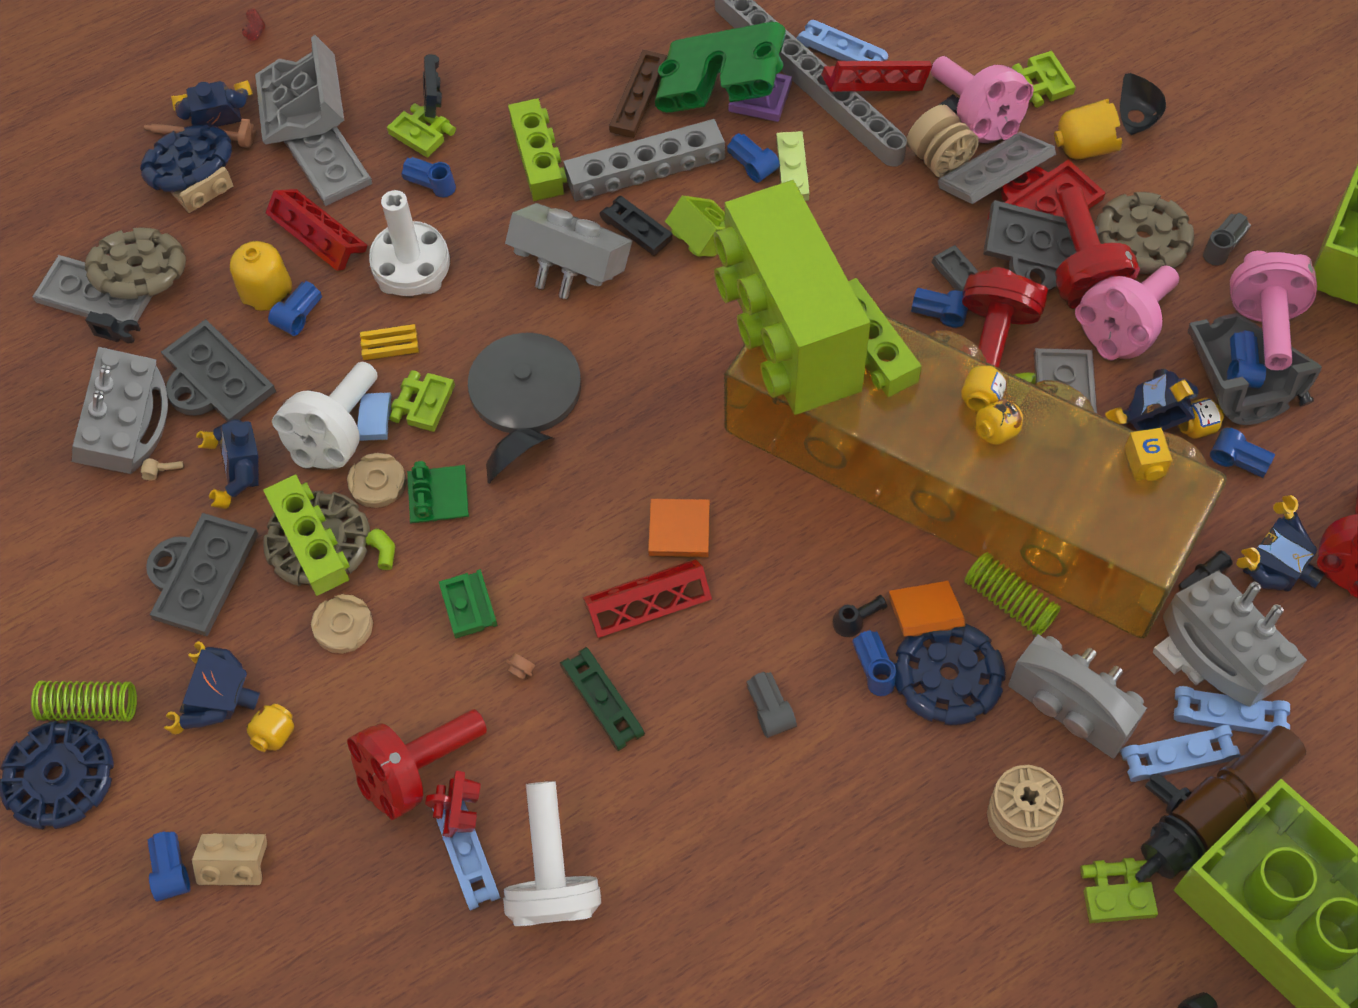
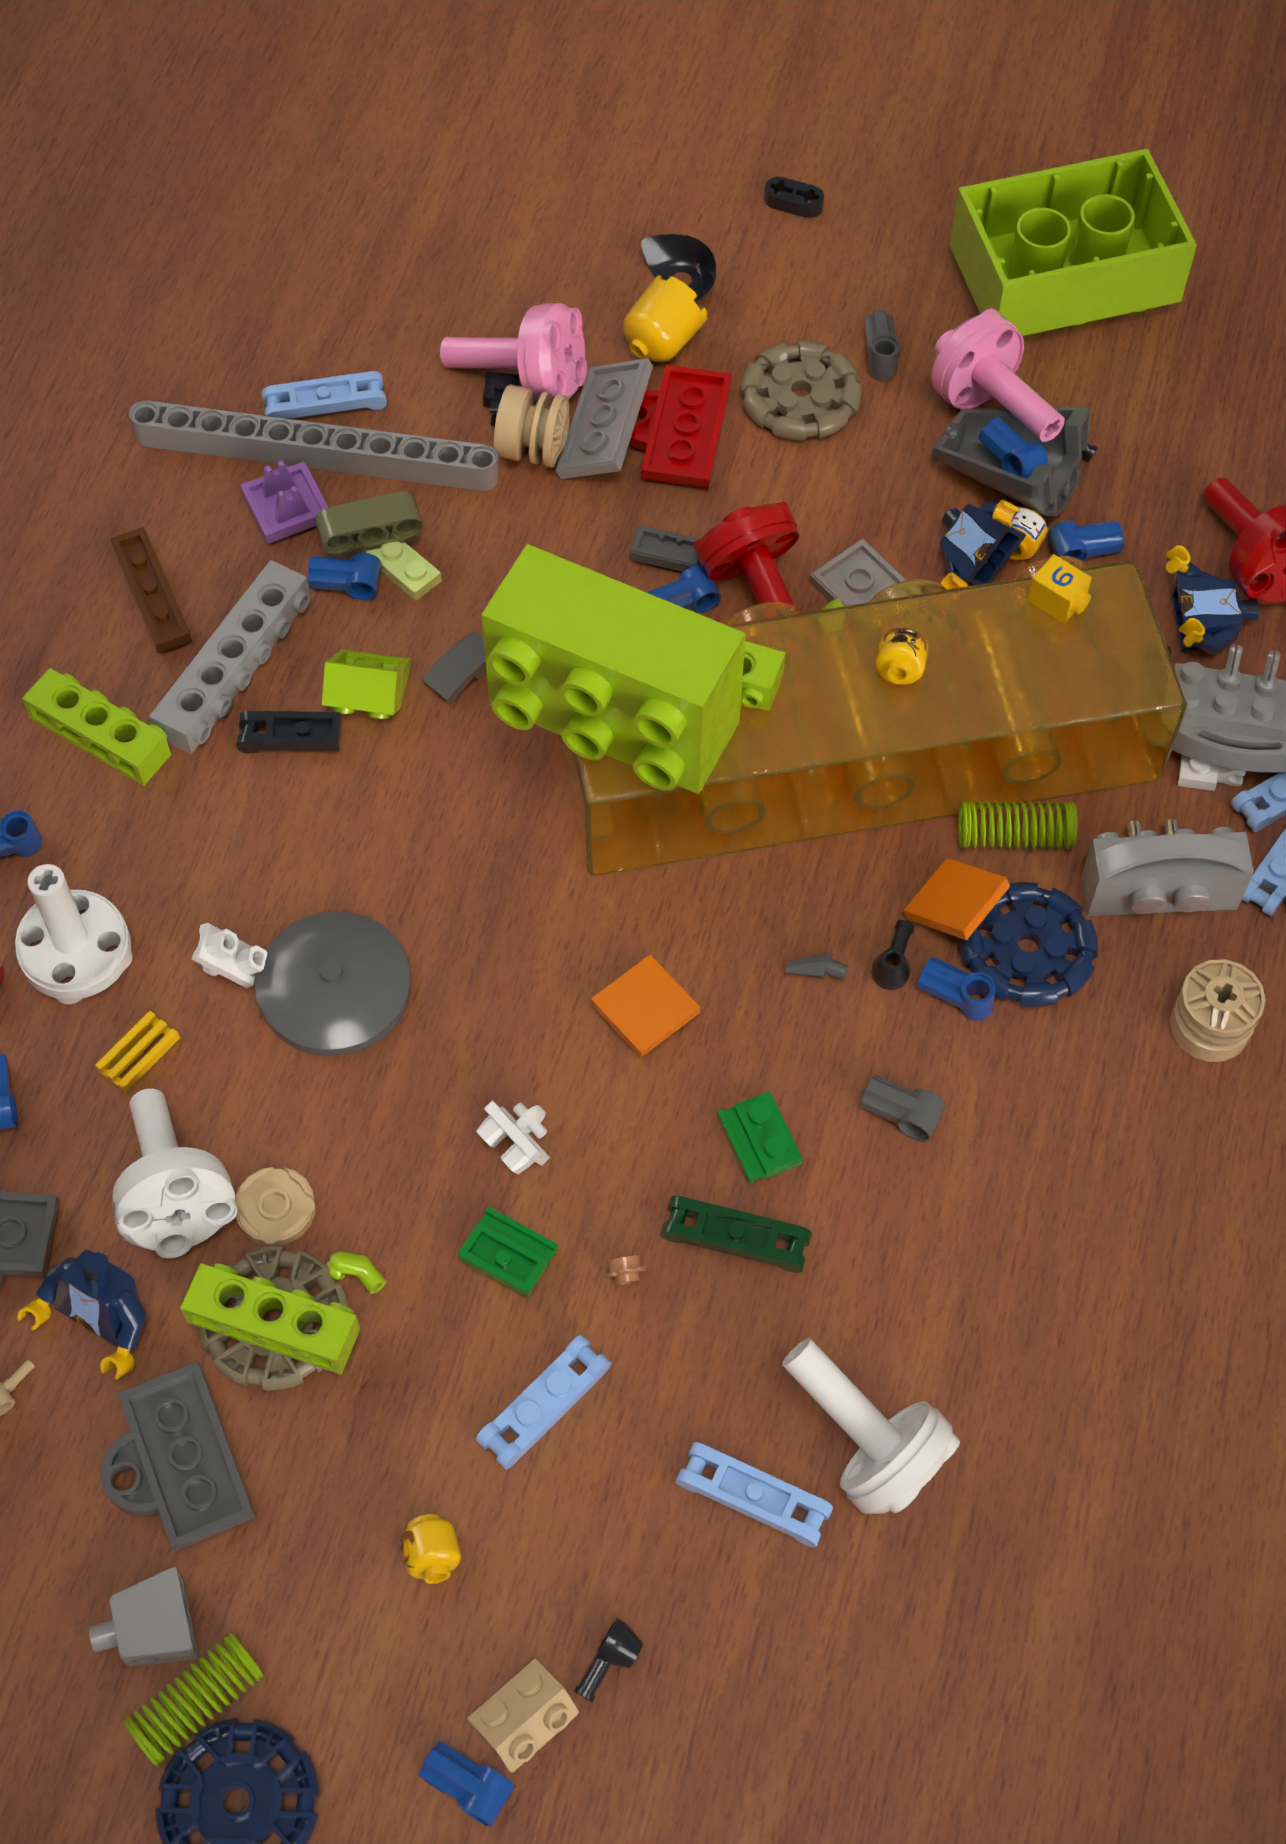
camera: 45 degrees left, 0 degrees up
(105, 644) = (149, 1622): none -> light grey torso
(212, 690) = (329, 1562): dark blue torso -> none
(310, 867) = (618, 1648): none -> black bar
(342, 624) = (391, 1382): tan tile -> none
(374, 416) = (200, 1131): light blue slope -> none
(389, 768) = (612, 1472): red piece -> none
(407, 702) = (543, 1402): none -> light blue plate
(429, 403) = (253, 1080): lime plate -> none
(437, 493) = (357, 1167): green hinge -> none
(458, 791) = (707, 1456): red hips -> none
(478, 322) = (226, 955): none -> white hips
(510, 448) = (398, 1063): black piece -> none
(539, 542) = (525, 1149): none -> white hips
(568, 242) = (246, 798): light grey piece -> none
(643, 587) = (670, 1093): red fence -> none
(671, 655) = (759, 1137): none -> green plate
(743, 55) = (190, 512): green connector -> none
(790, 134) = (369, 522): none -> olive beam
(805, 584) = (817, 966): none -> dark grey bar
(876, 75) = (399, 403): red fence -> none
(983, 387) = (857, 634): yellow head -> none
(1028, 241) = (722, 466): dark grey plate -> none
(1050, 76) = (558, 286): lime plate -> none
(1092, 259) = (805, 456): red piece -> none
(1125, 315) = (870, 480): bright pink piece -> none
(1262, 109) = (794, 197): none -> black beam

